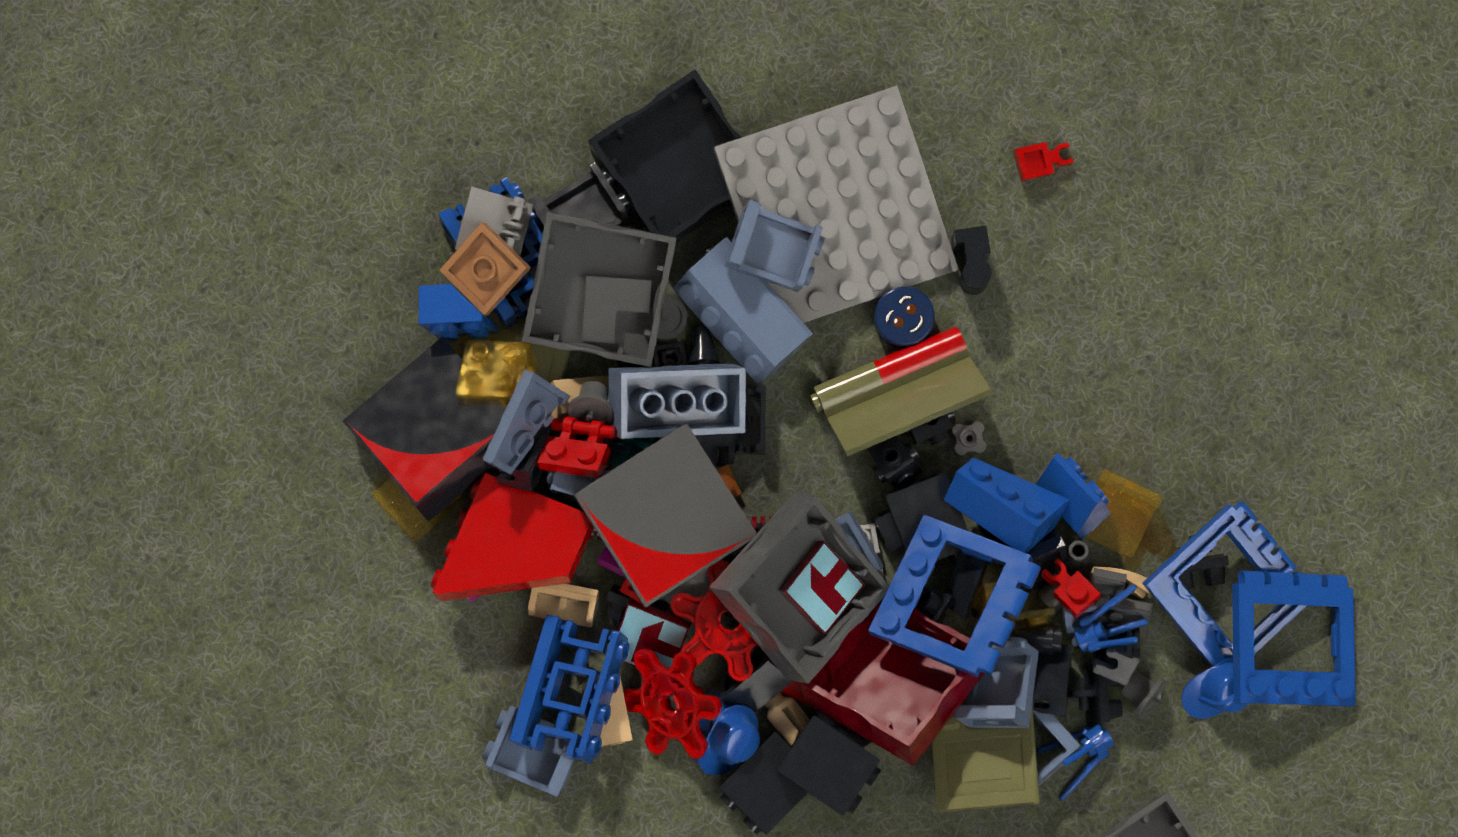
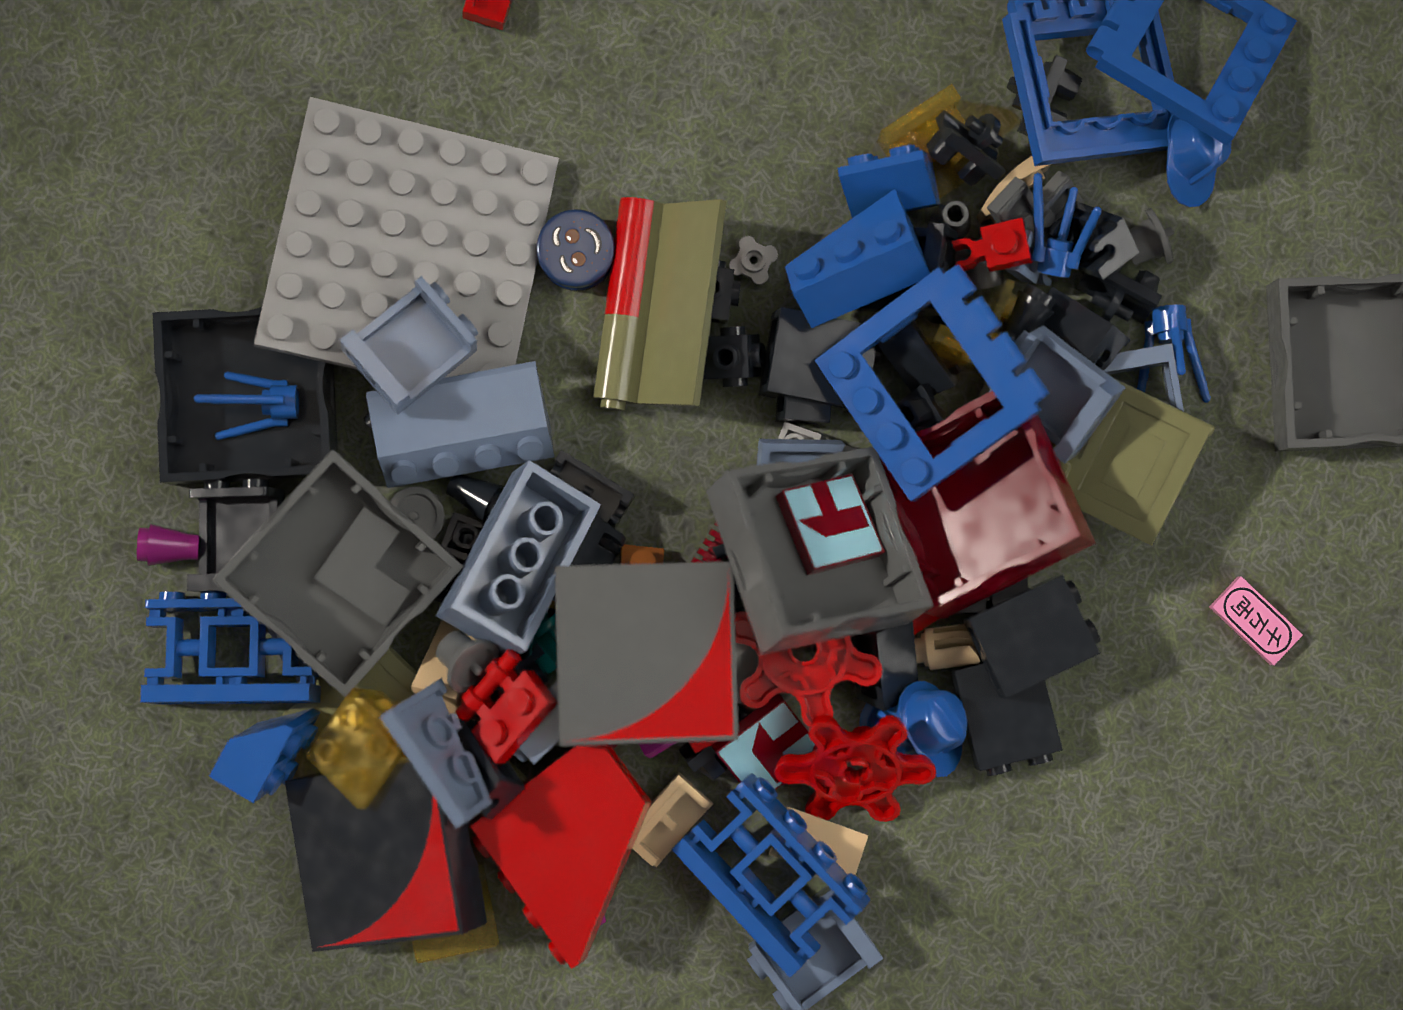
camera: 60 degrees left, 5 degrees up
(485, 268) = (235, 688): medium nougat plate -> none
(503, 214) = (193, 648): light grey hinge -> none
(548, 168) = (165, 545): none -> magenta cone
(686, 184) = (279, 402): none -> blue plant
(974, 250) = (547, 125): black legs -> none
(1133, 534) = (974, 140): none -> black hips

